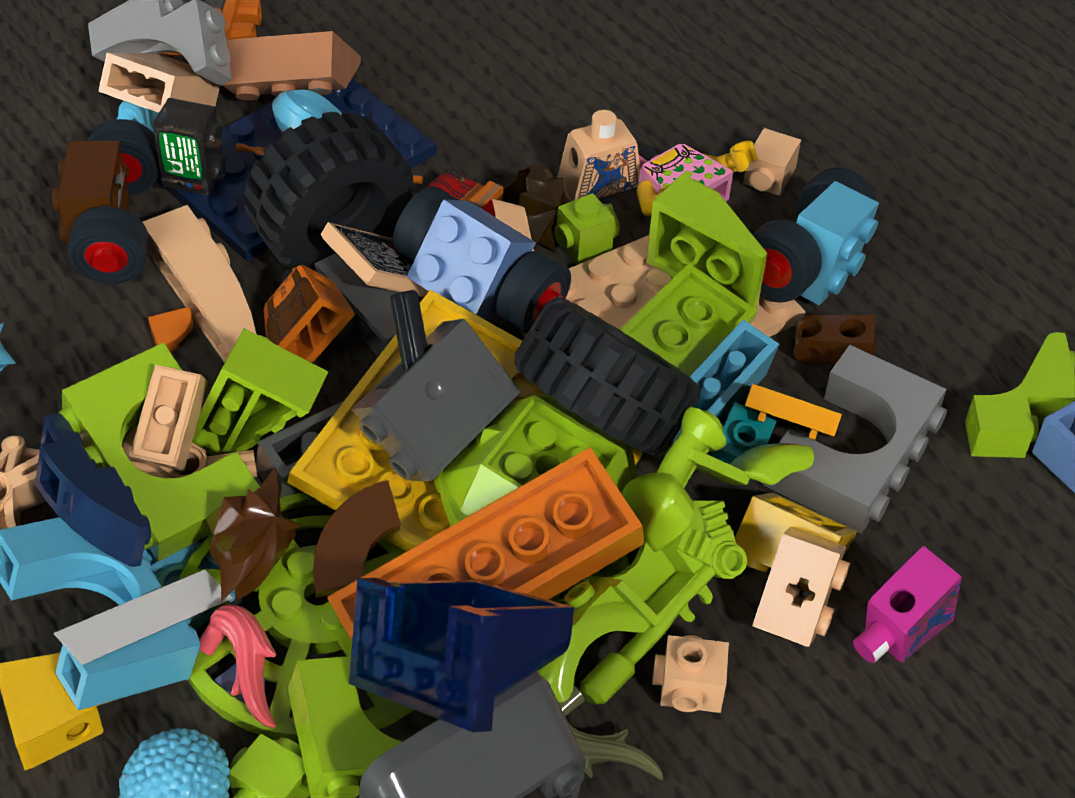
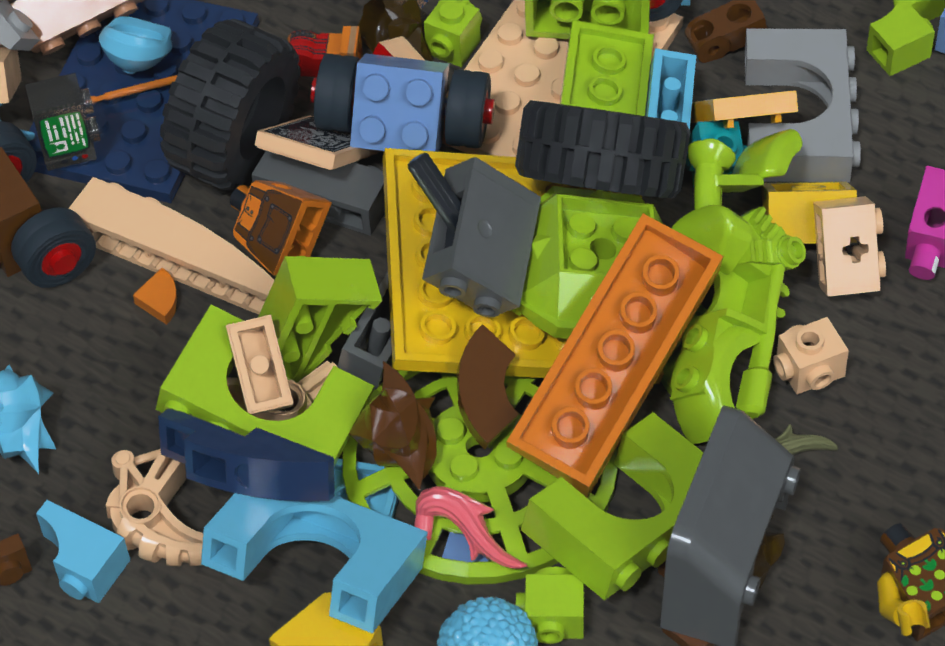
camera: 25 degrees left, 5 degrees up
(141, 617) = (371, 533): white sticker -> none
(452, 644) = (657, 421): clear blue windscreen -> none

